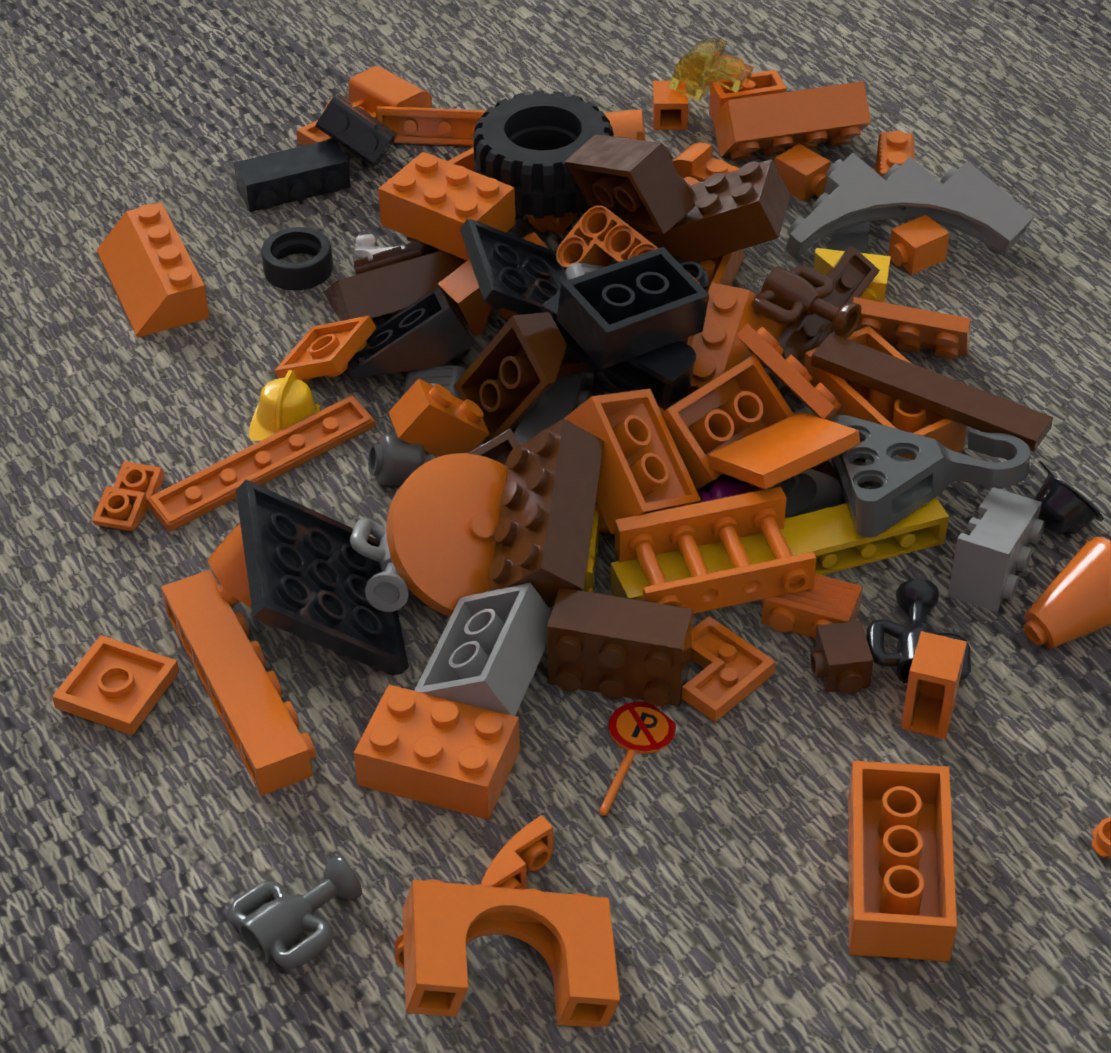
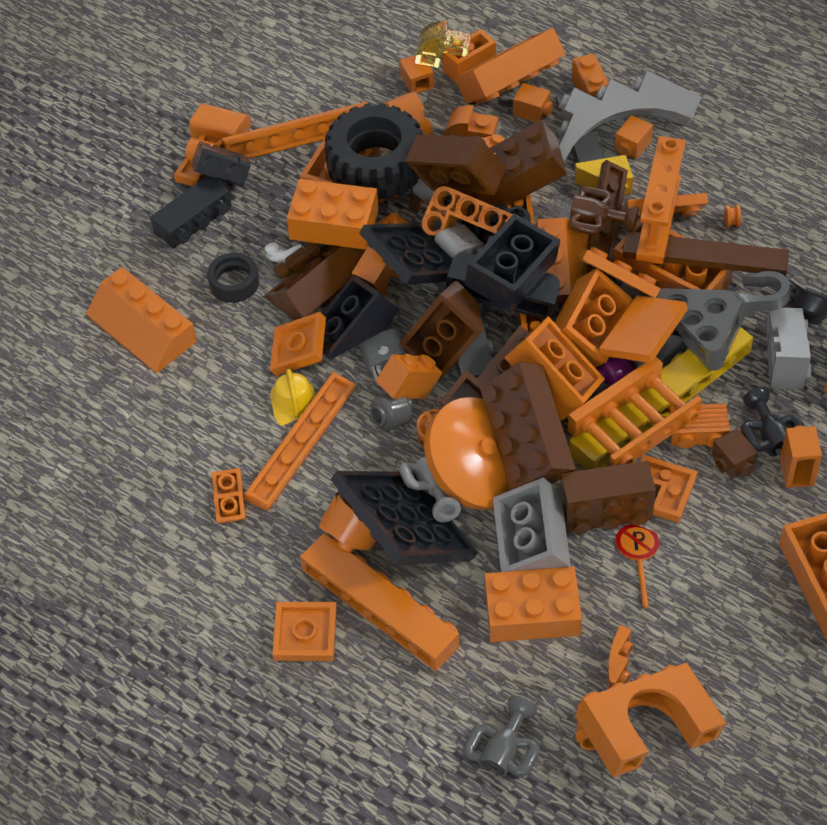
camera: 20 degrees left, 10 degrees up
(885, 296) = (660, 199): none -> orange fence
(1006, 371) = (732, 216): none -> orange bush

